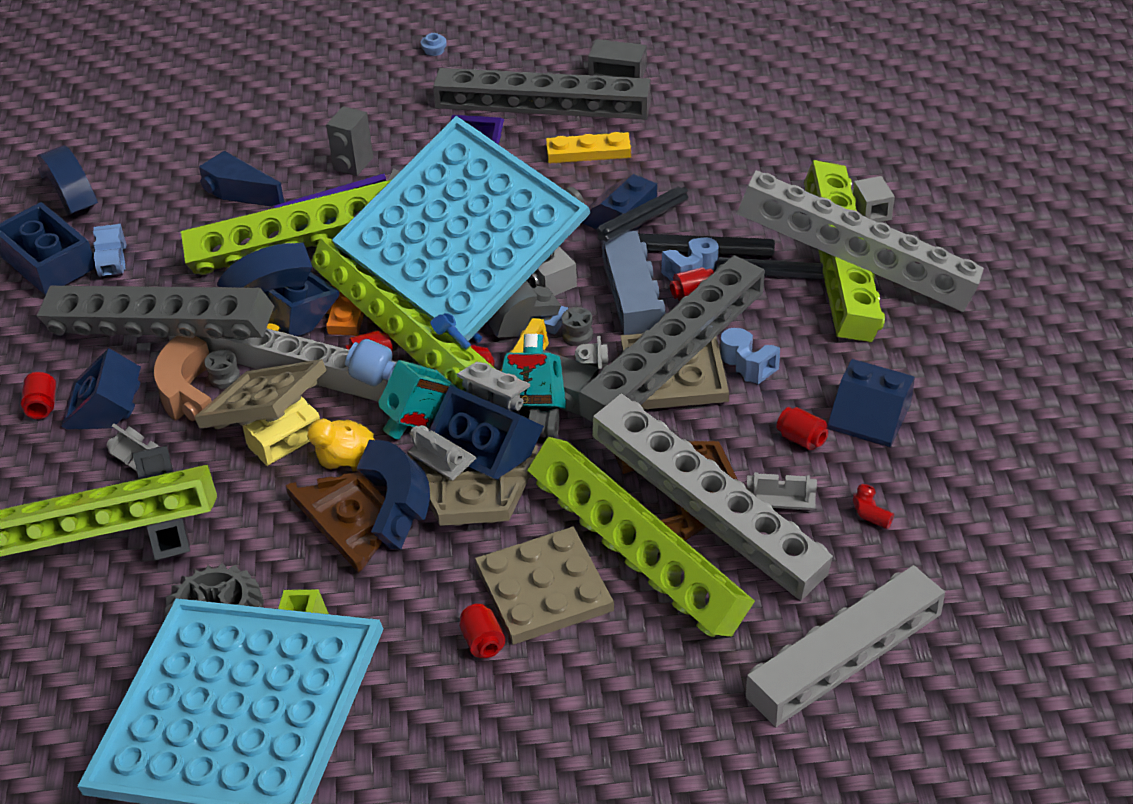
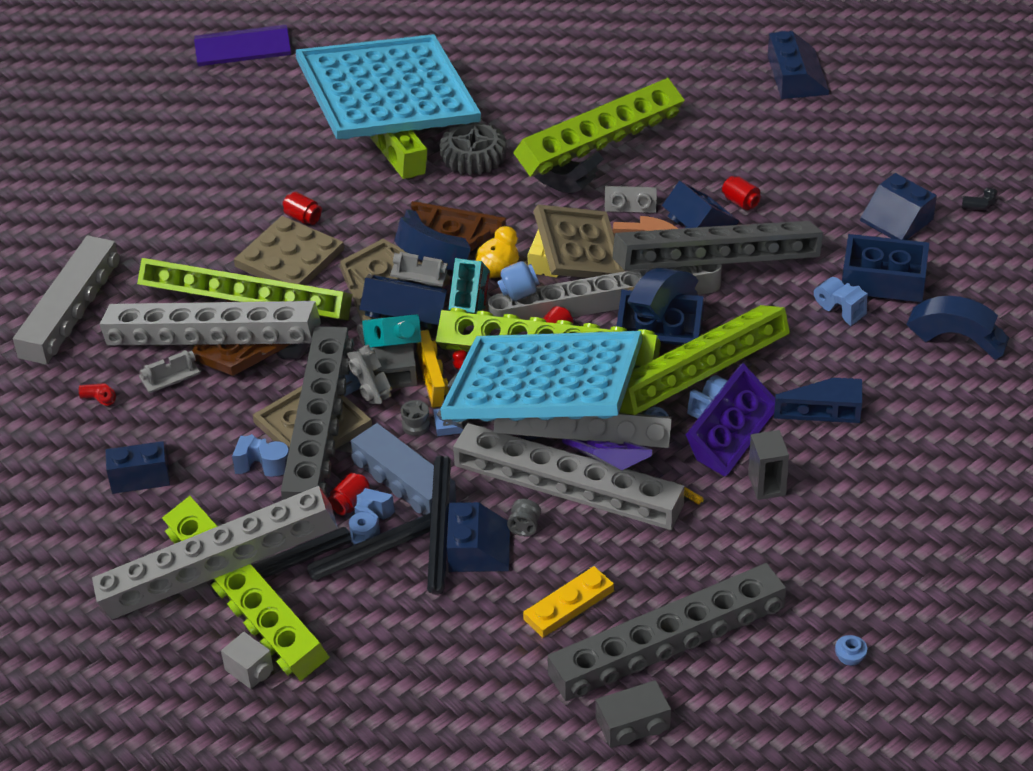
camera: 145 degrees right, 0 degrees up
(447, 323) = (488, 328): blue hand -> none
(483, 380) = (413, 302): light grey hinge -> none
(802, 428) = (180, 419): red brick -> none

